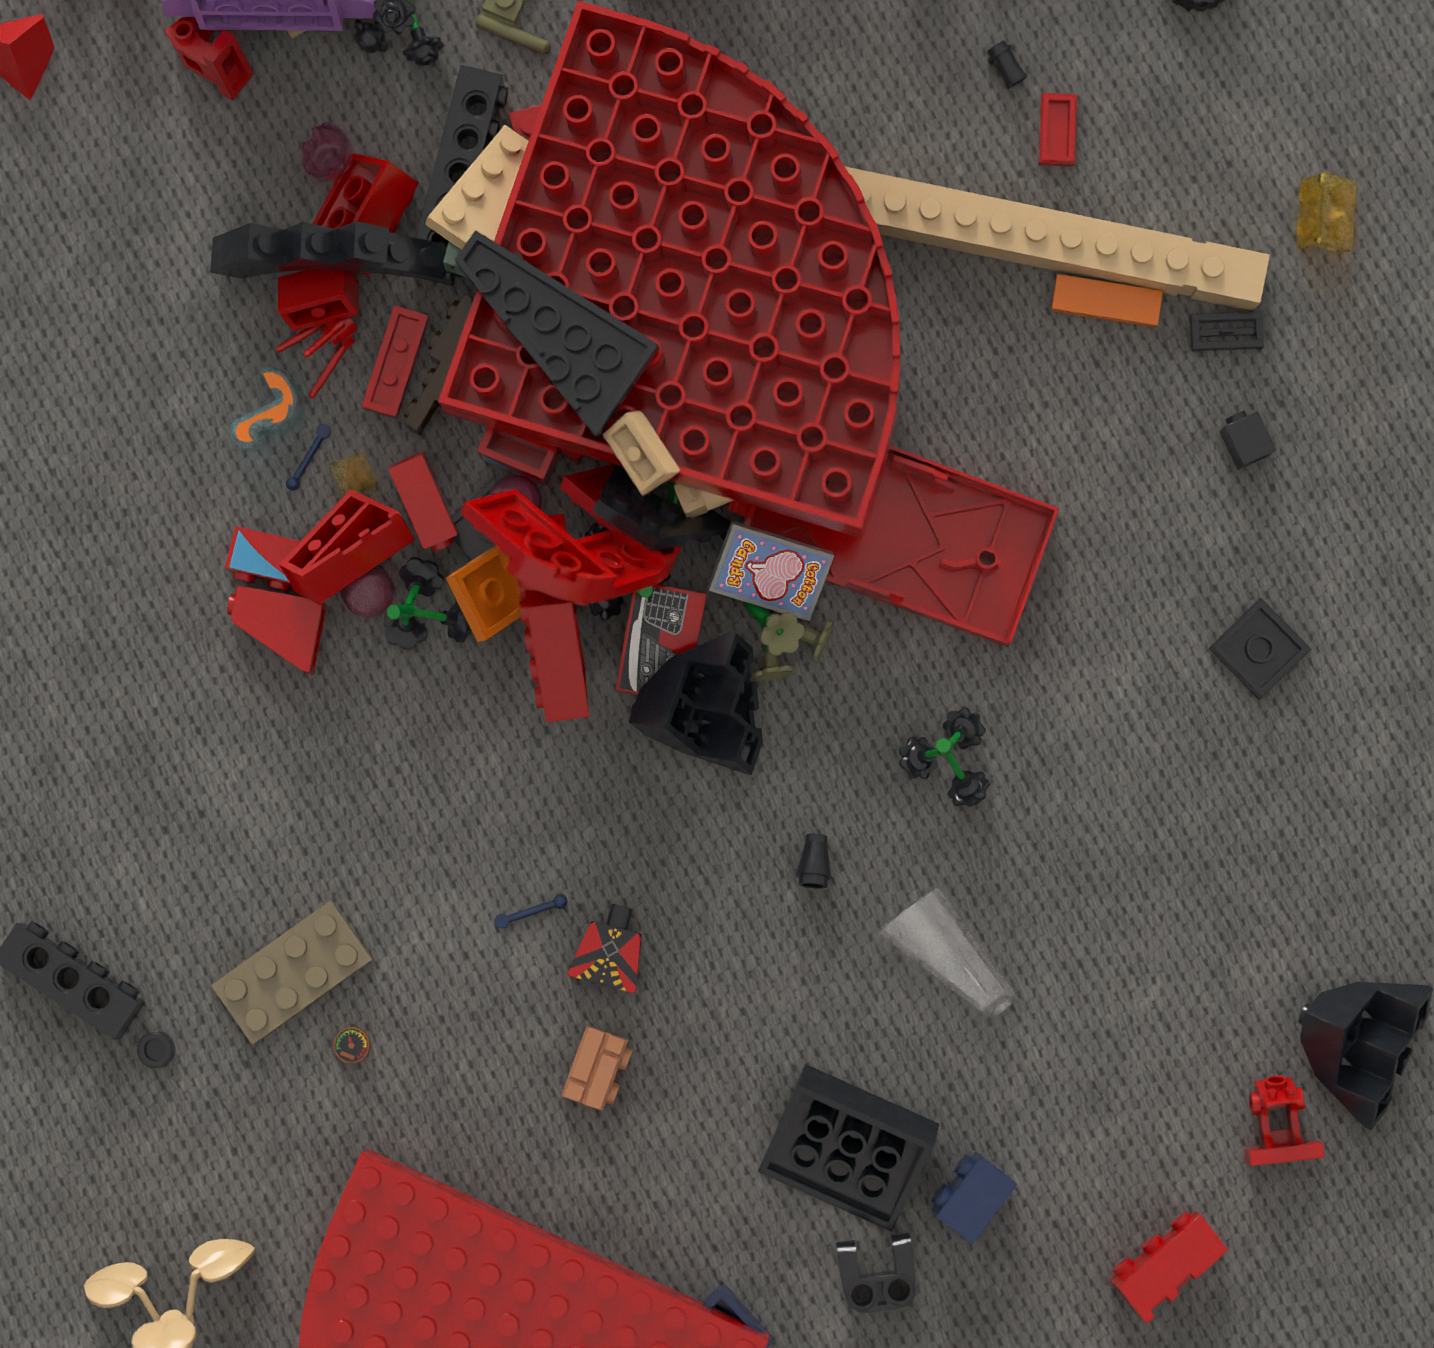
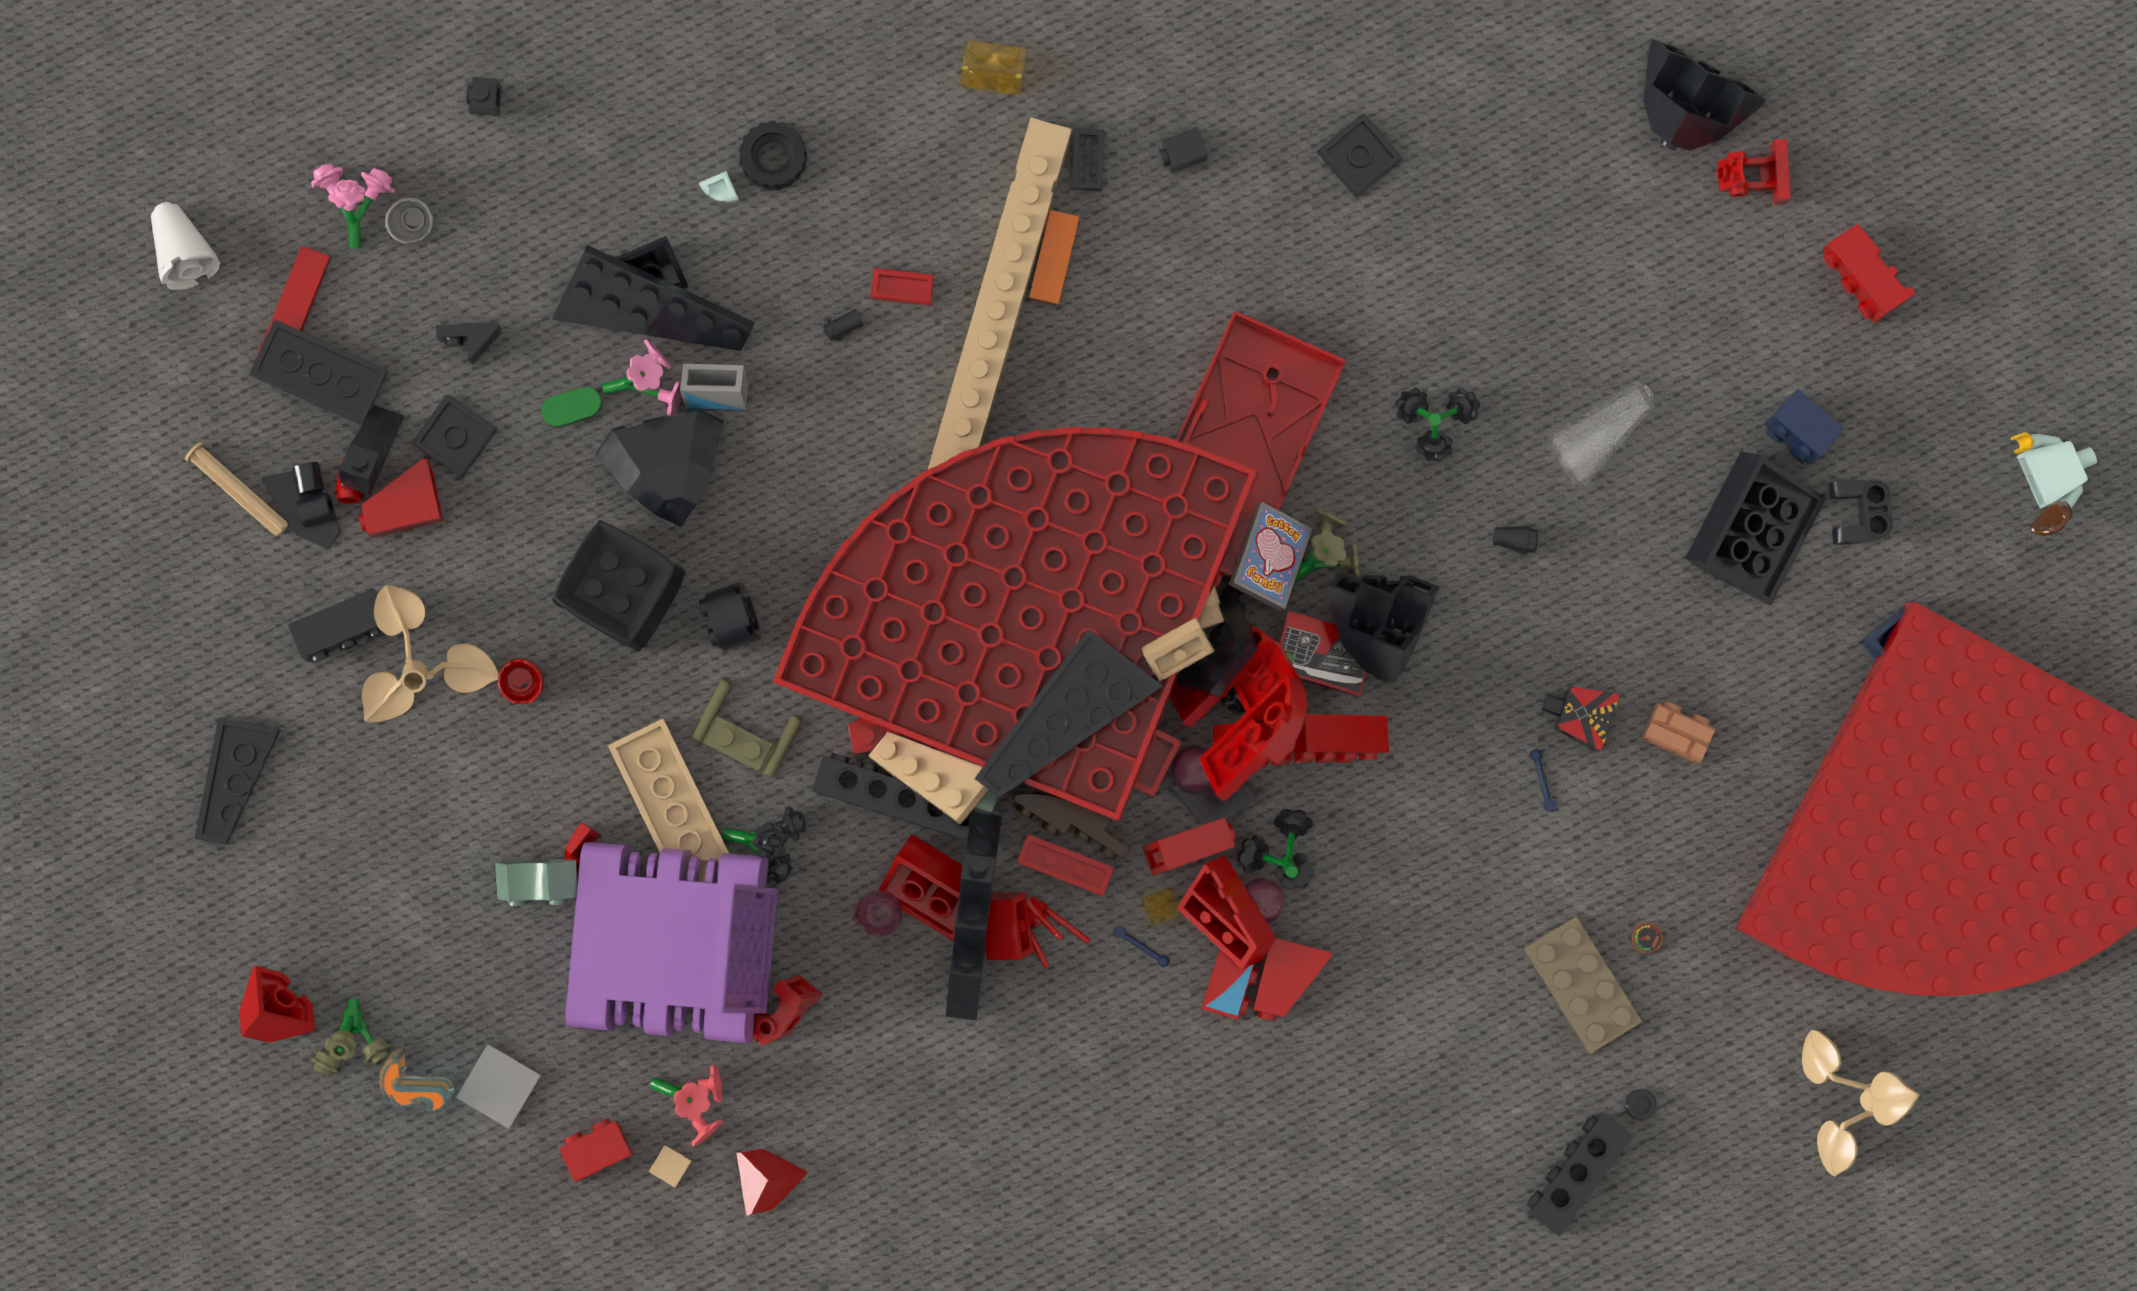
camera: 85 degrees left, 0 degrees up
(274, 418) = (1107, 971): clear light blue animal -> none
(486, 593) = (1275, 795): orange plate -> none

